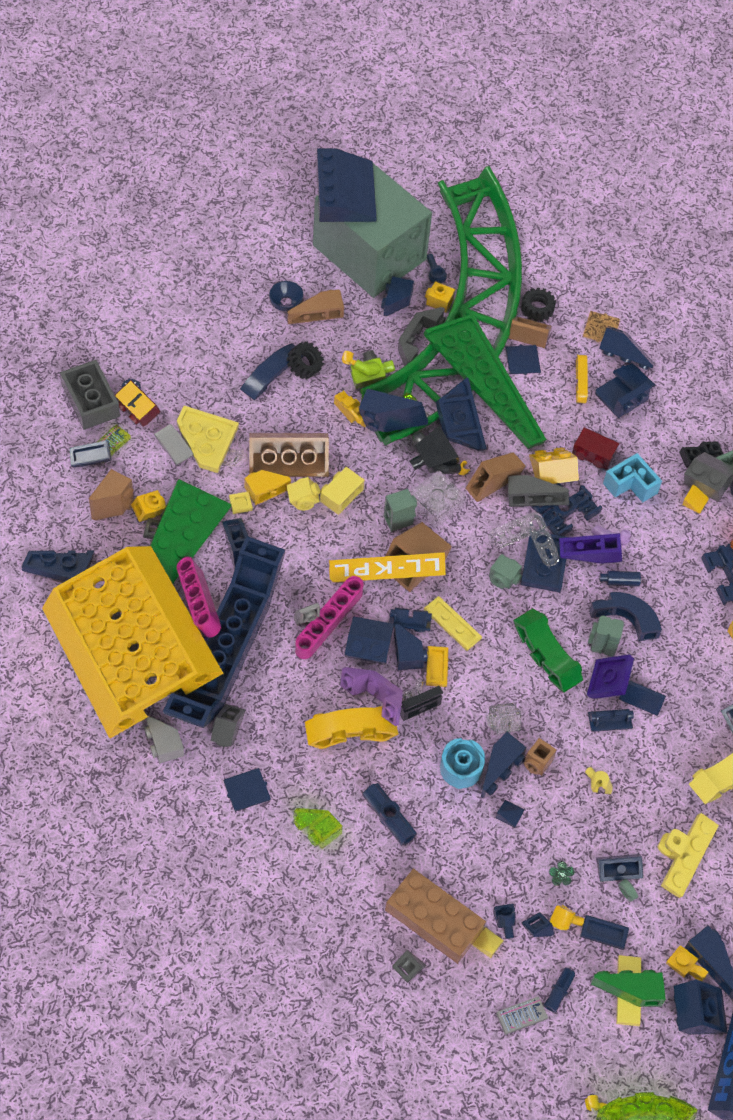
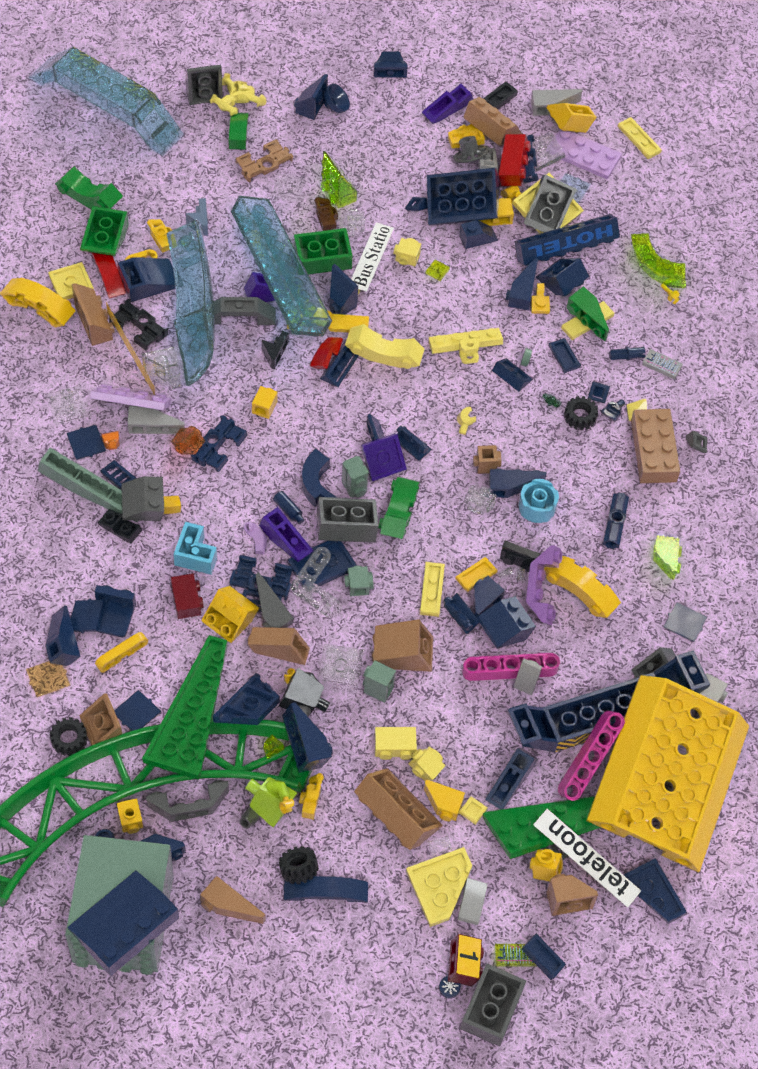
camera: 130 degrees left, 0 degrees up
(126, 531) = (587, 858): none -> white sticker
(285, 289) = (239, 928): dark blue piece -> none
(388, 567) = (440, 650): yellow sticker -> none
(509, 813) = (540, 457): dark blue slope -> none
(523, 898) = (581, 422): none -> black tyre
(563, 917) = (579, 378): yellow piece -> none
(569, 597) = (347, 519): none -> dark grey brick

